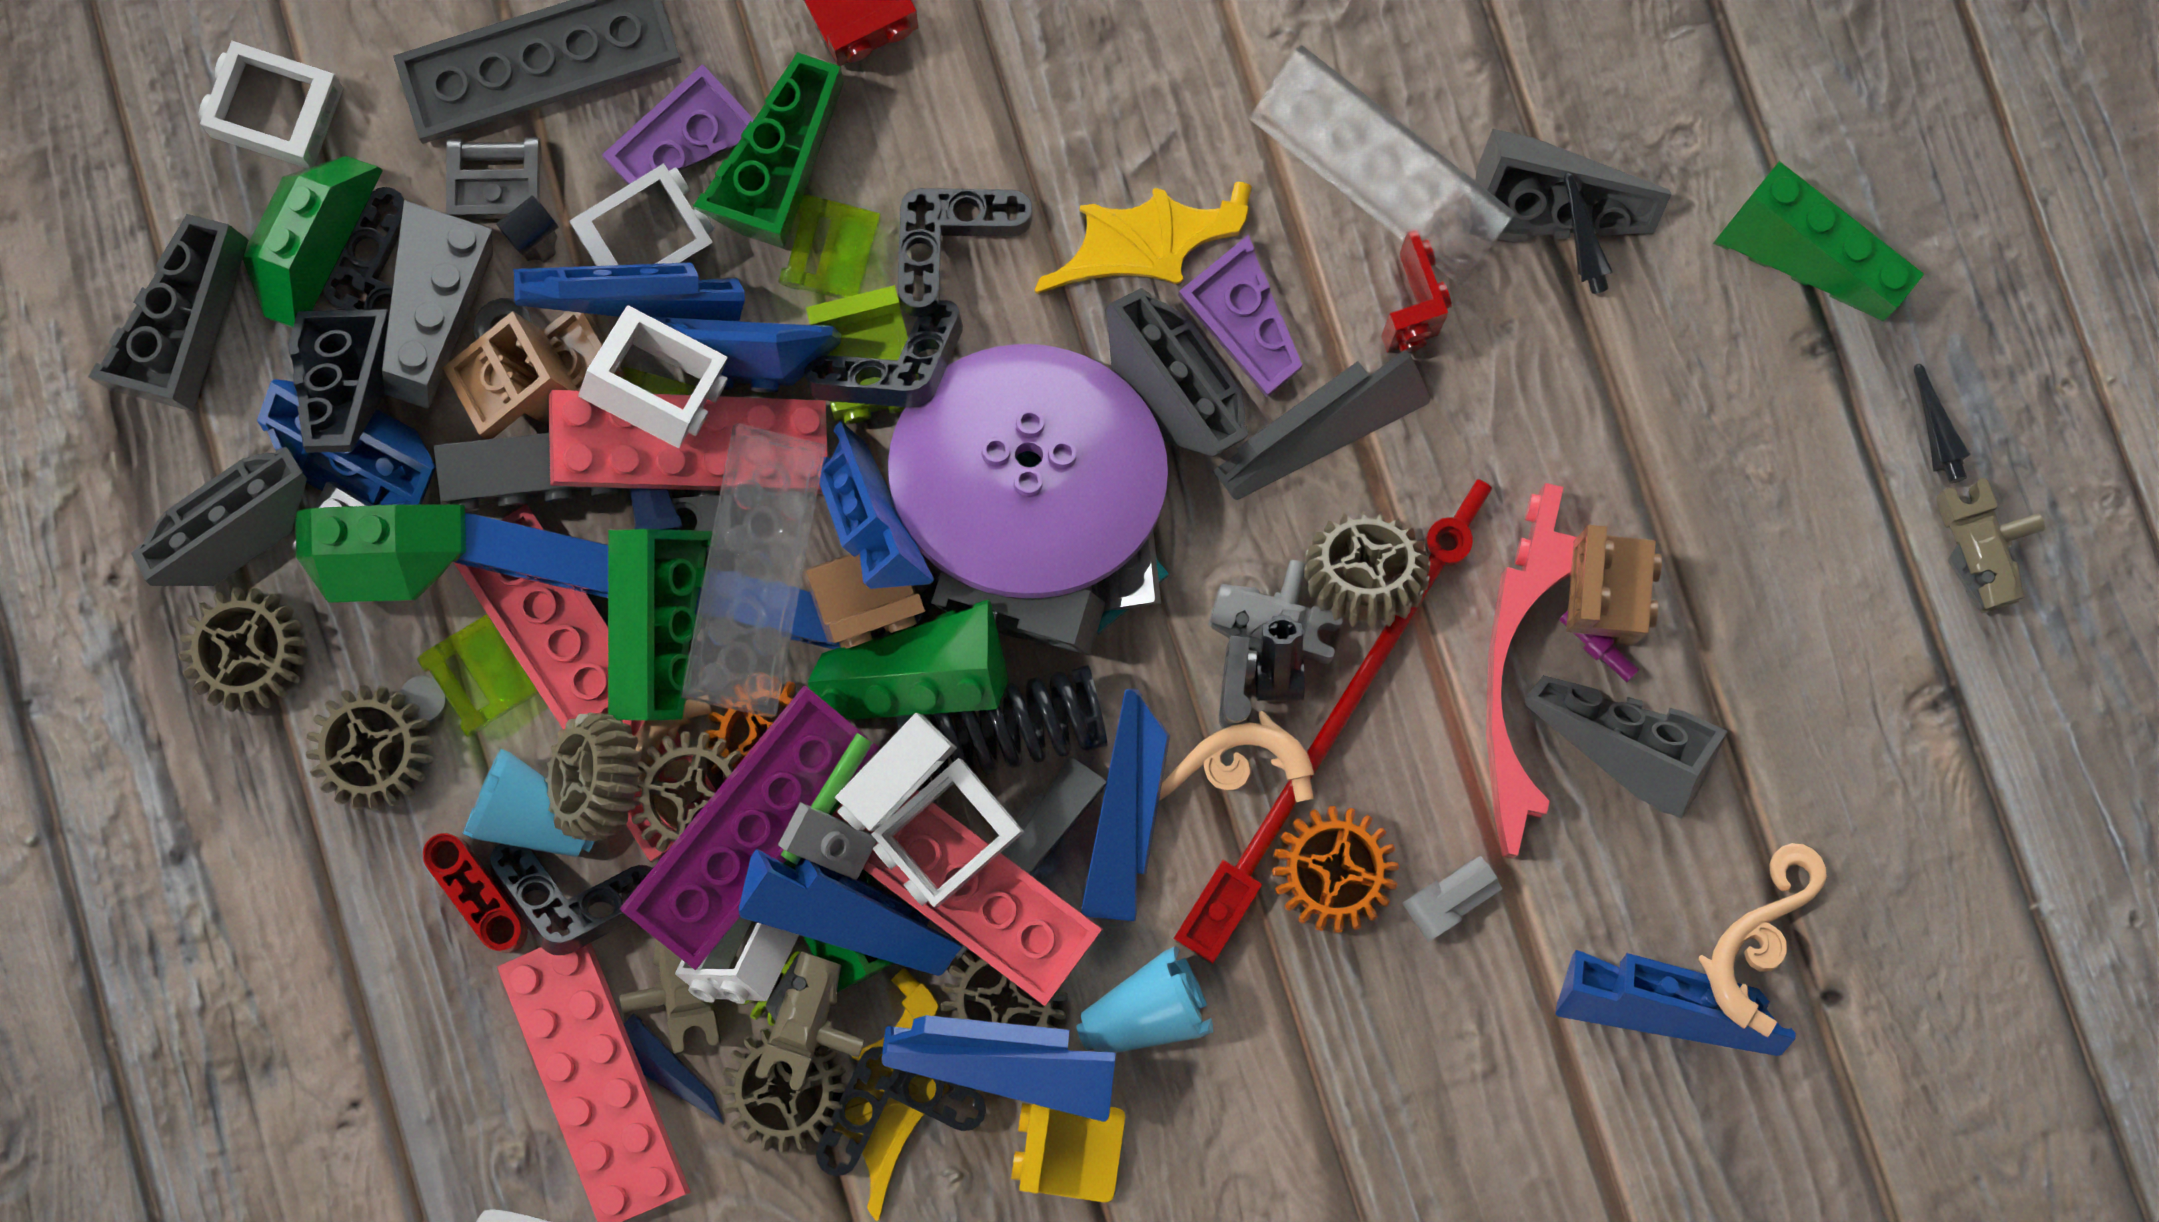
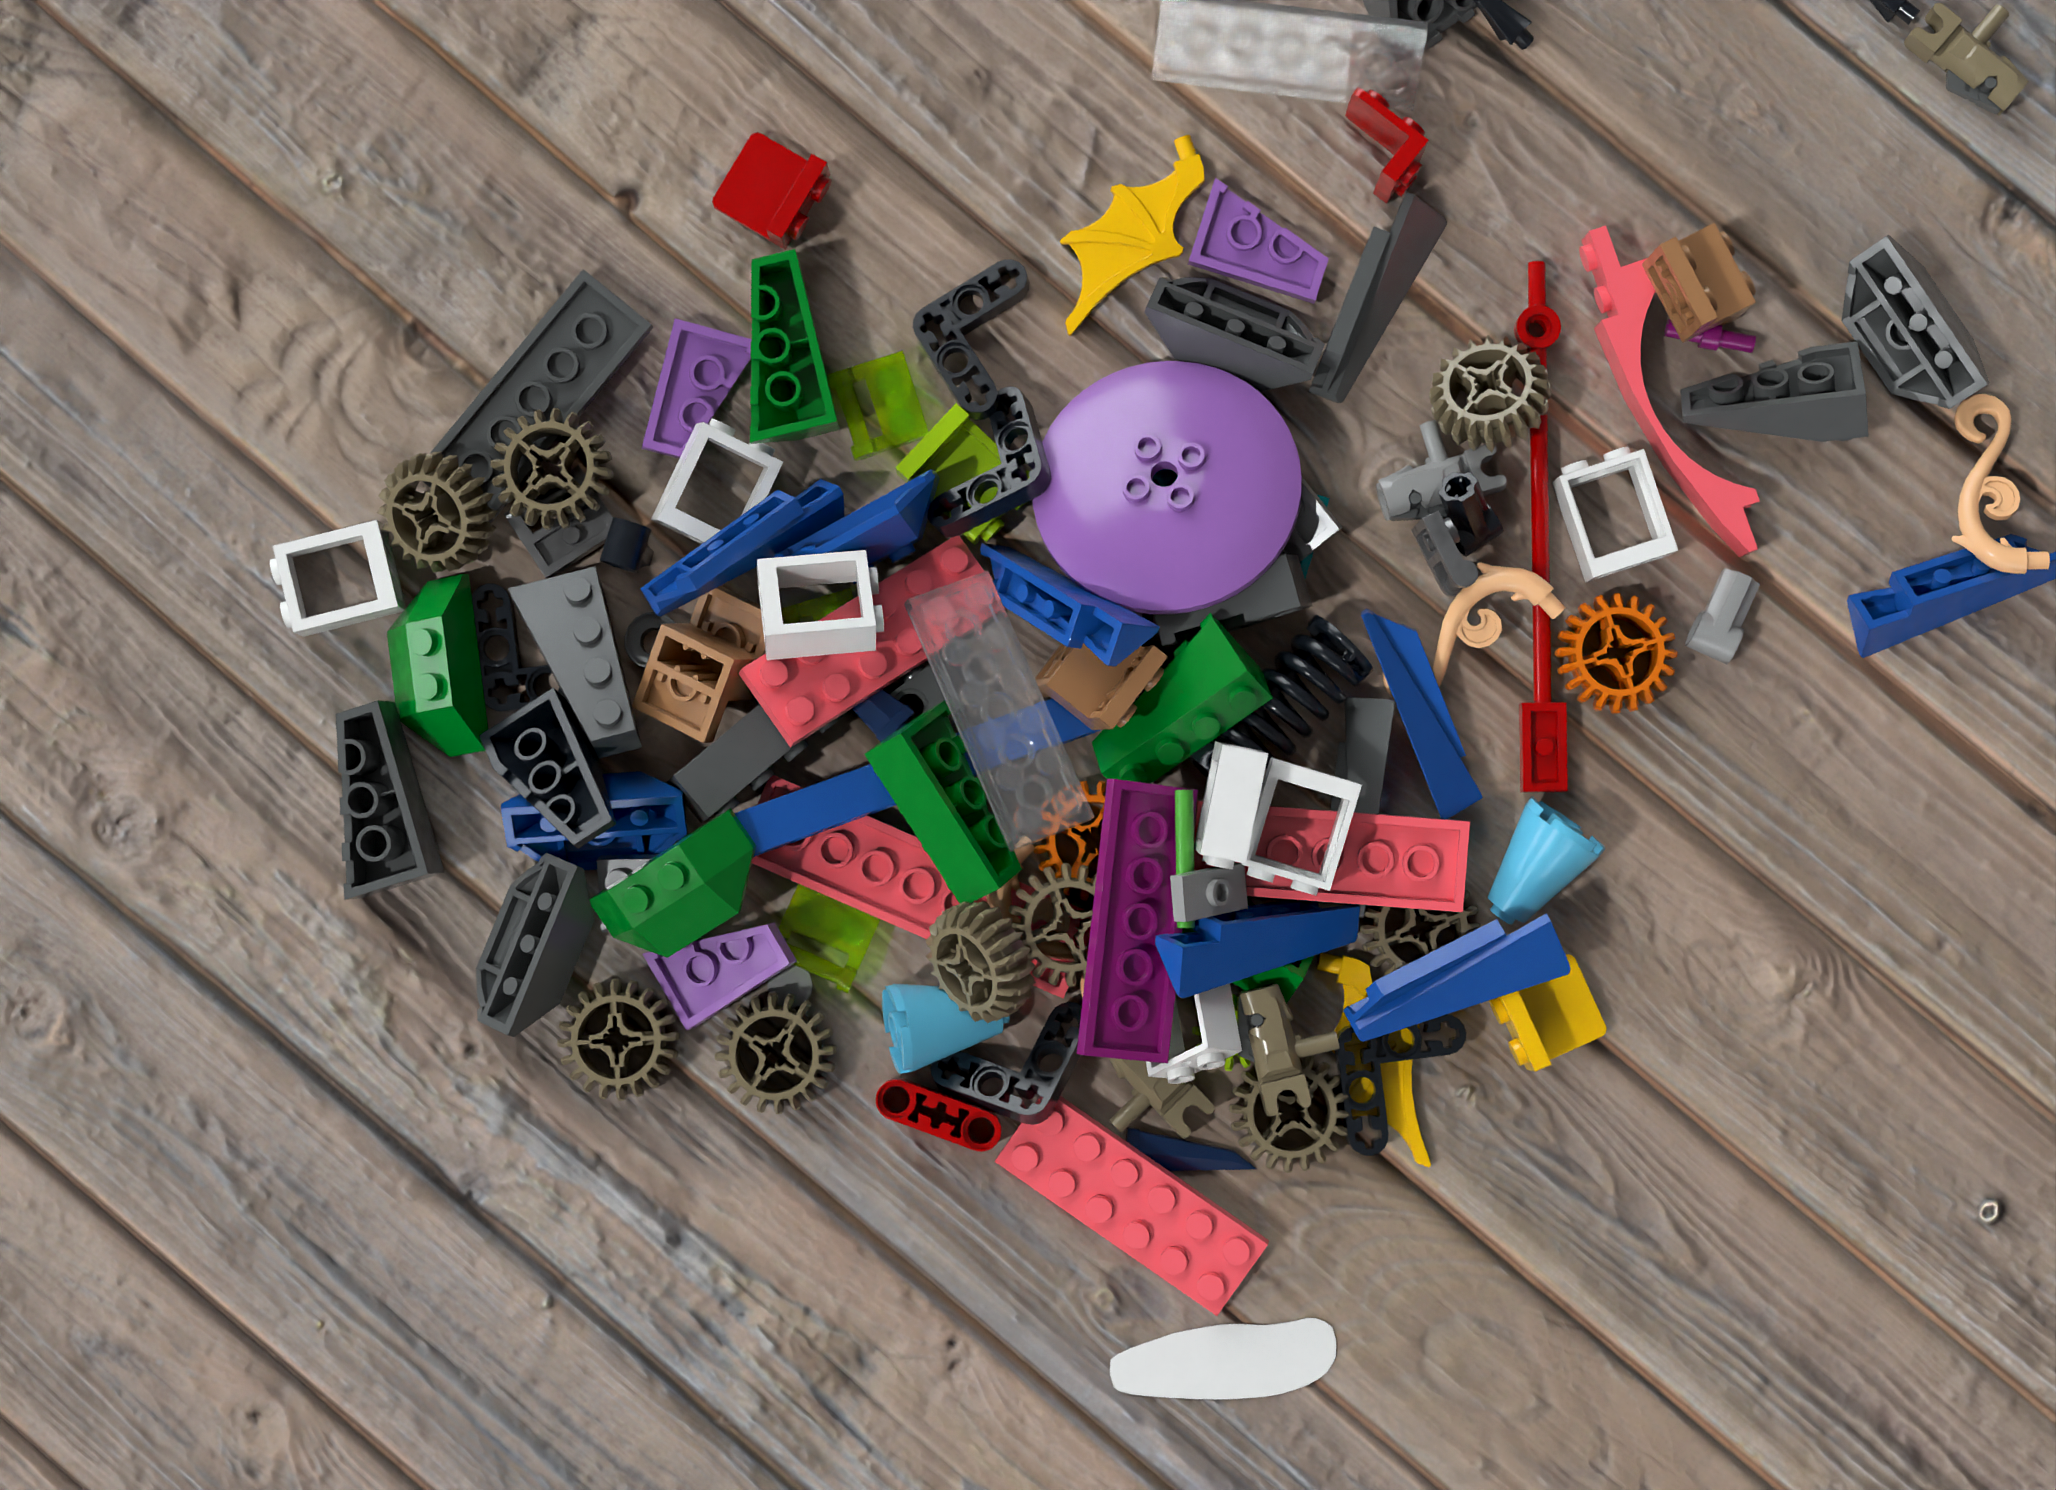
camera: 30 degrees left, 5 degrees up
(367, 644) = (719, 970): none -> medium lavender wing
(403, 99) = (450, 505): none -> dark tan gear
(527, 118) = (522, 444): none -> dark tan gear
(1400, 792) = (1616, 461): none -> white window
(1780, 746) = (1909, 328): none -> dark grey wedge

